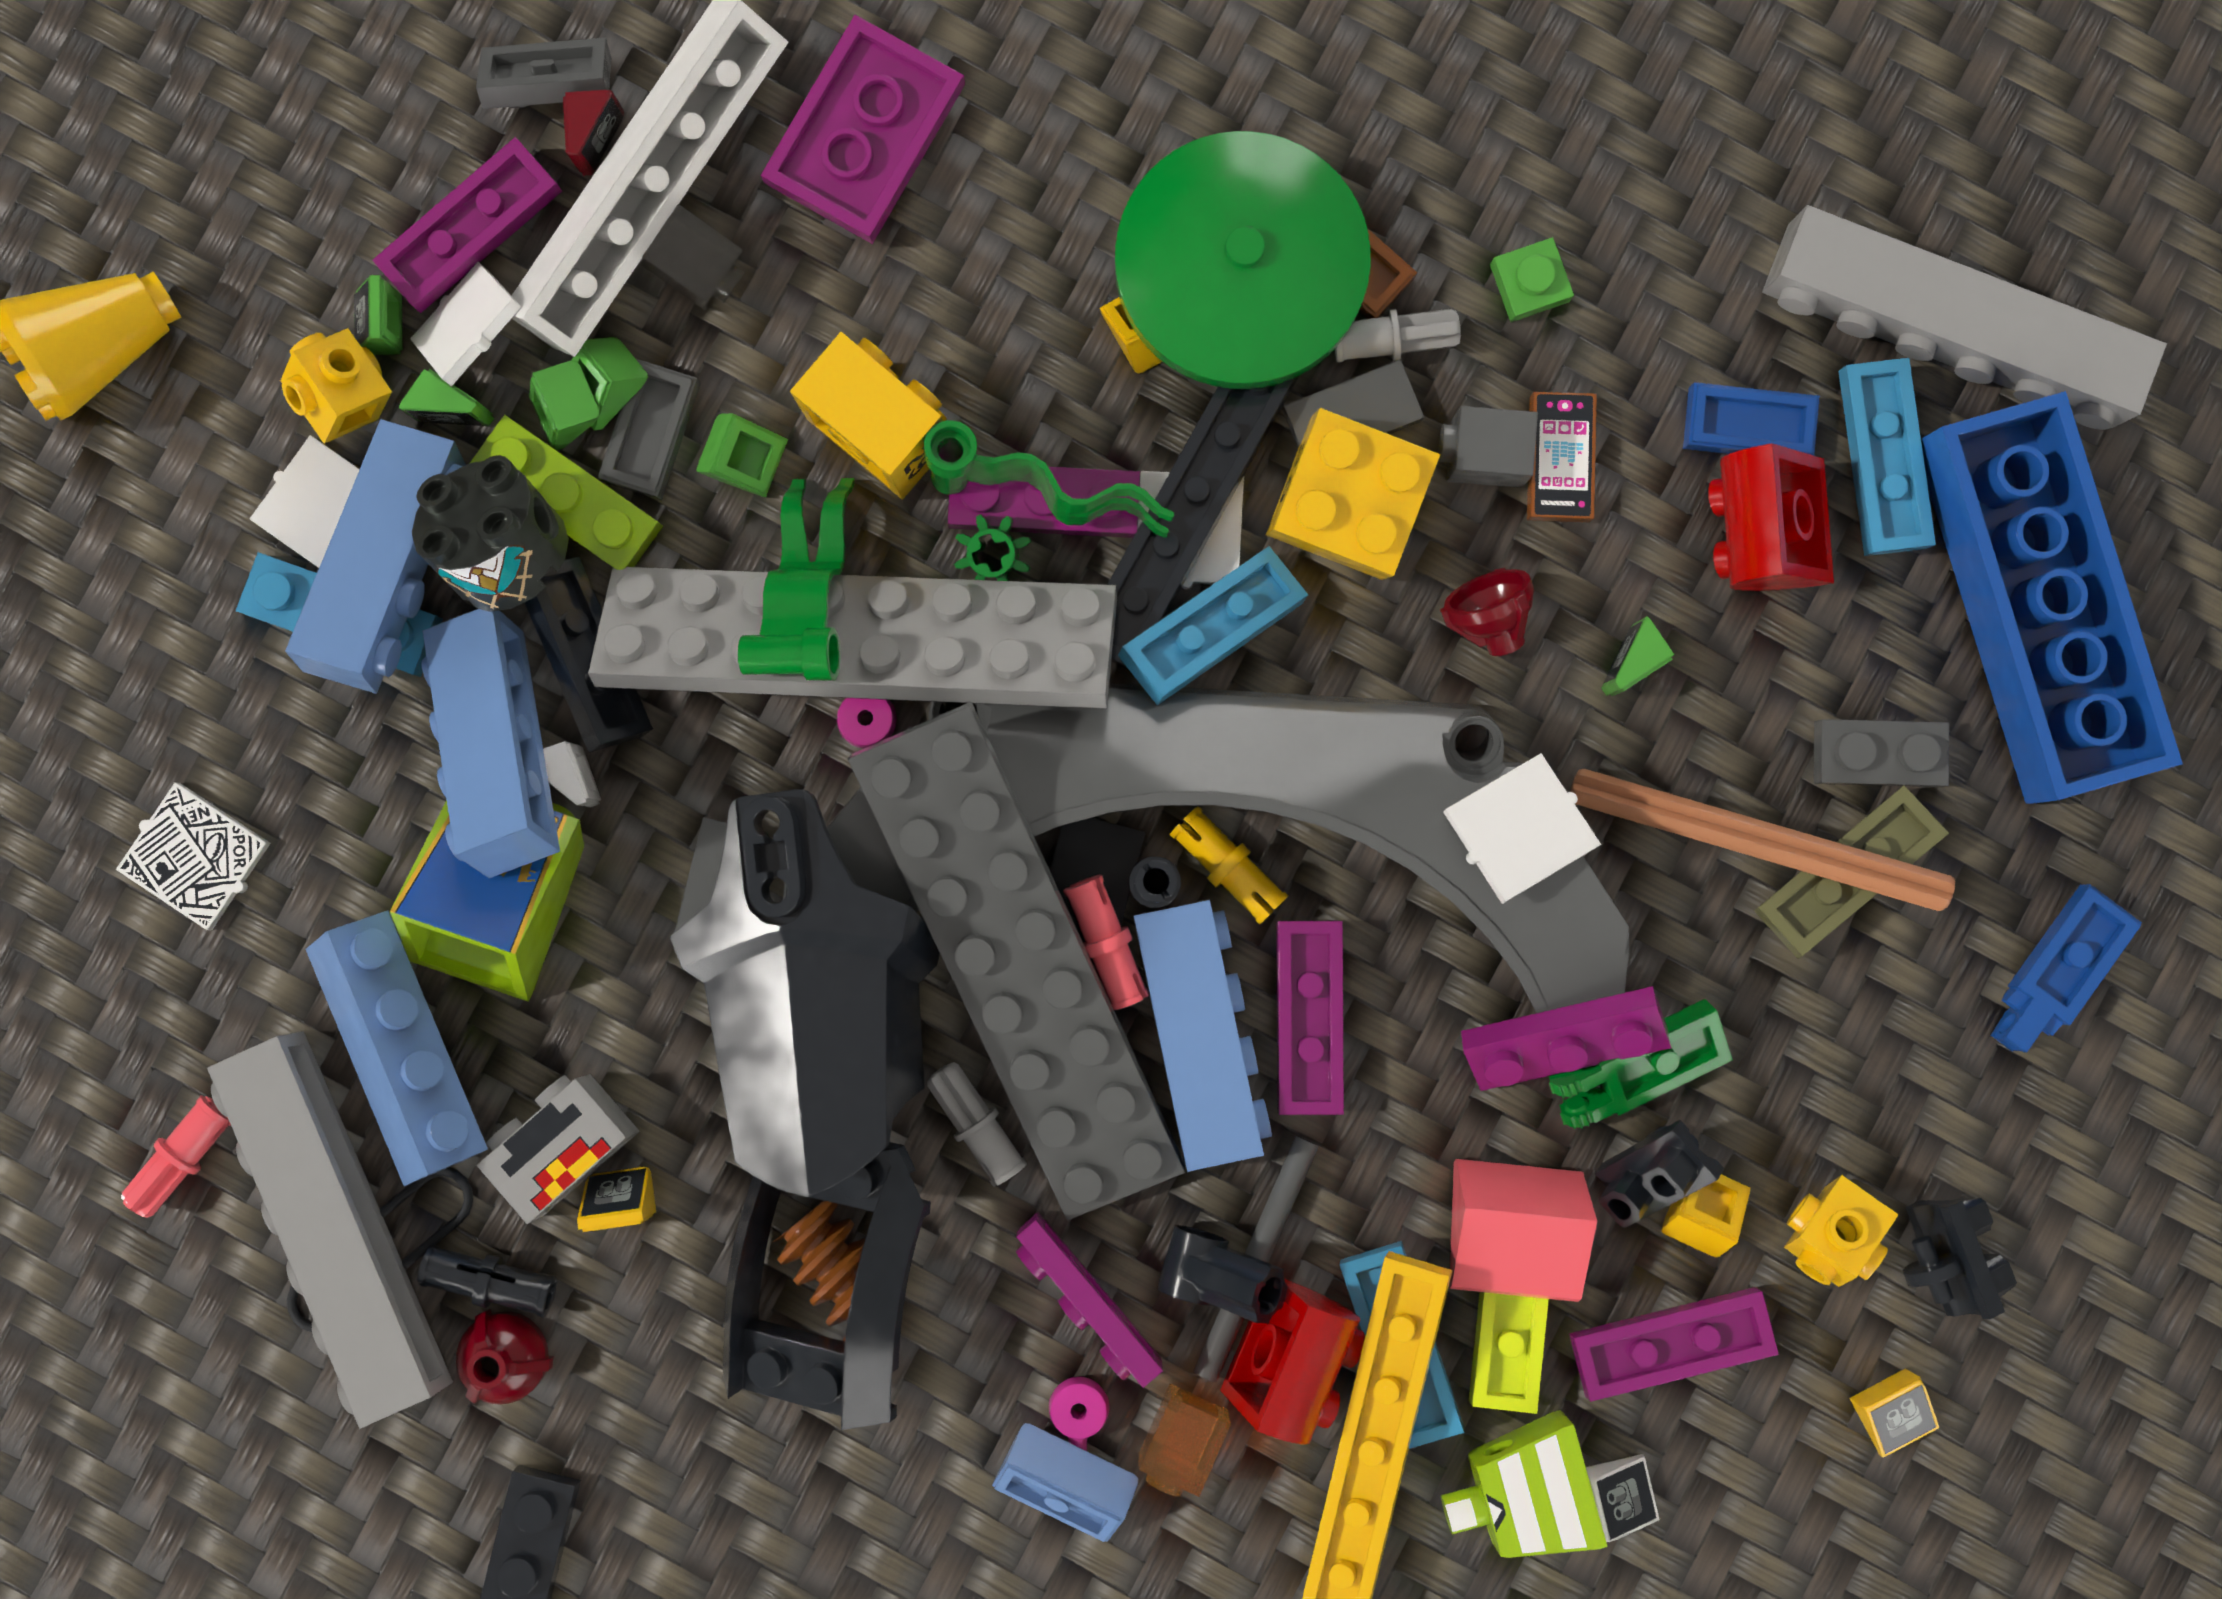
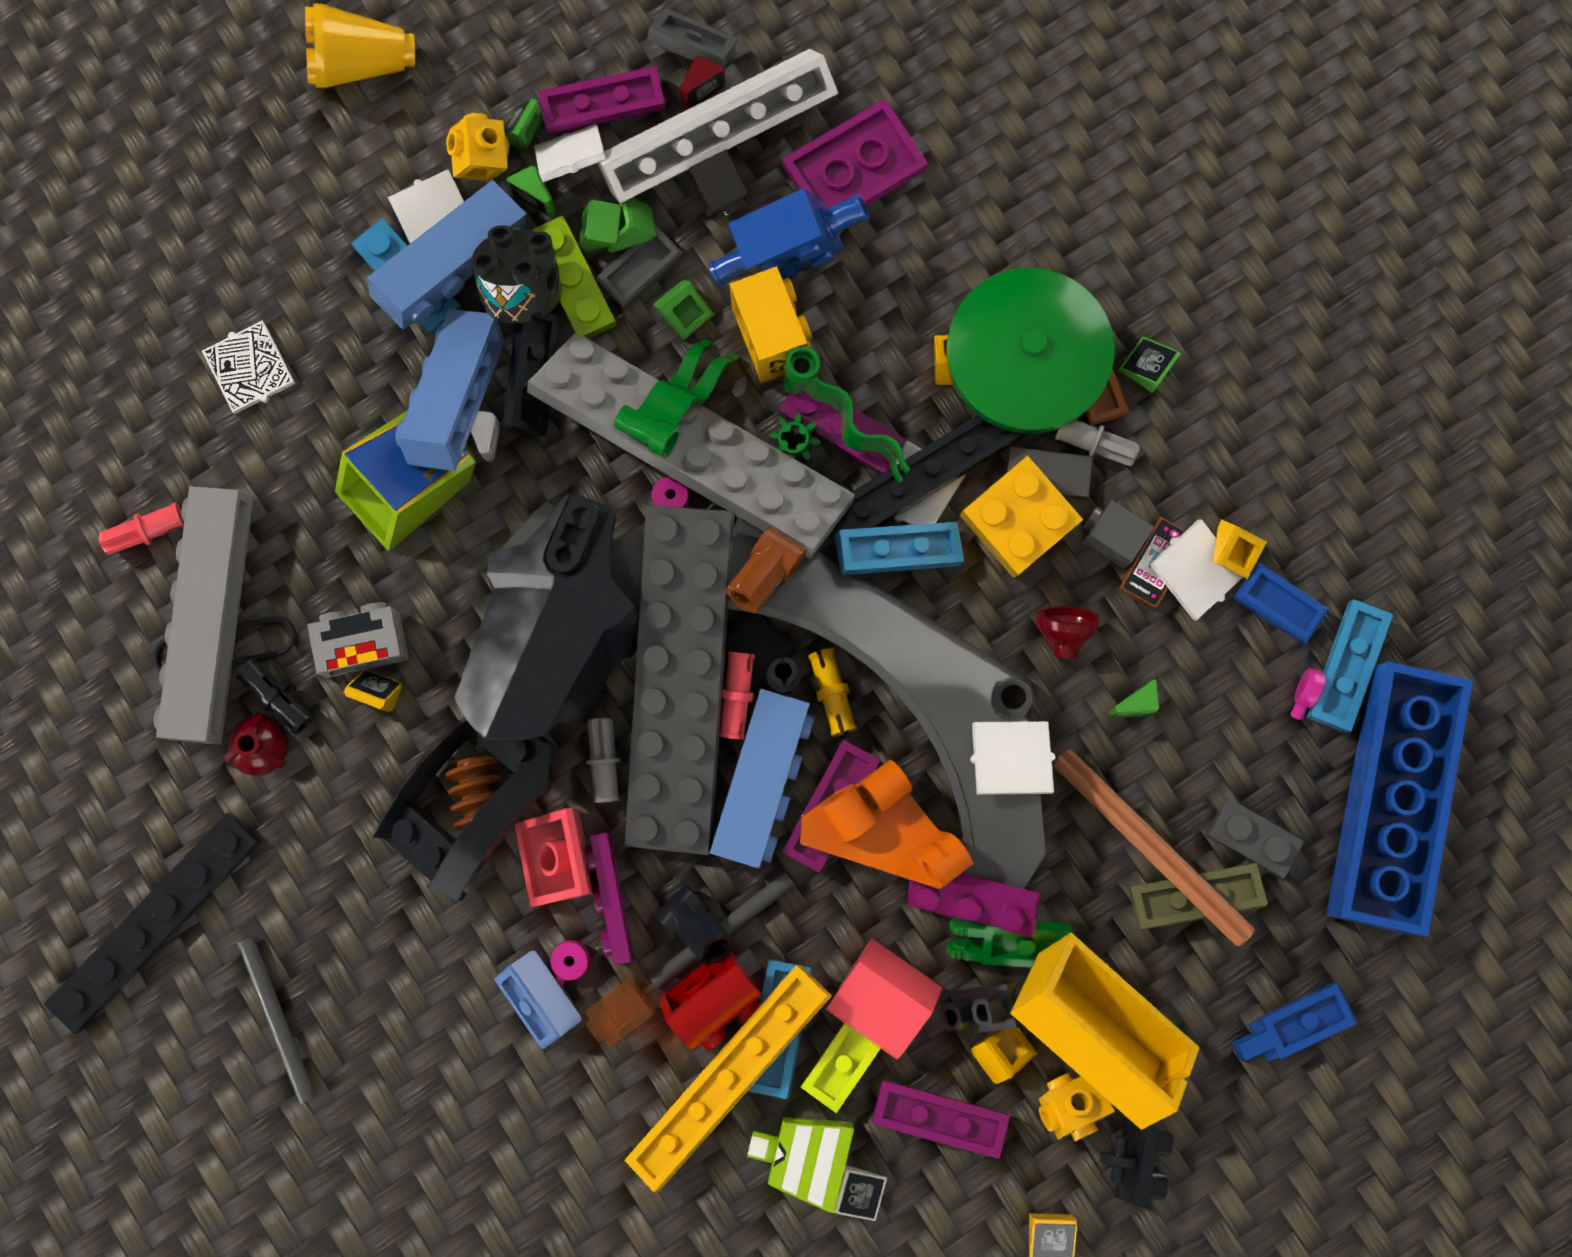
camera: 30 degrees right, 5 degrees down
(395, 1047) = (300, 534): medium blue brick -> none
(831, 280) = (788, 235): none -> blue brick
(984, 1287) = (554, 857): none -> coral slope
(1057, 744) = (770, 562): none -> dark orange piece
(1402, 1012) = (885, 830): none -> orange panel
(1408, 190) = (1149, 363): none -> slope
(1531, 279) = (1194, 452): bright green plate -> none
(1620, 437) = (1191, 573): none -> white piece
(1658, 381) = (1237, 549): none -> yellow slope
(1773, 519) = (1261, 665): red brick -> none
(1834, 1119) = (1106, 1031): none -> yellow piece
(1850, 521) = (1308, 692): none -> dark pink piece
(1962, 318) = (1438, 610): light grey brick -> none

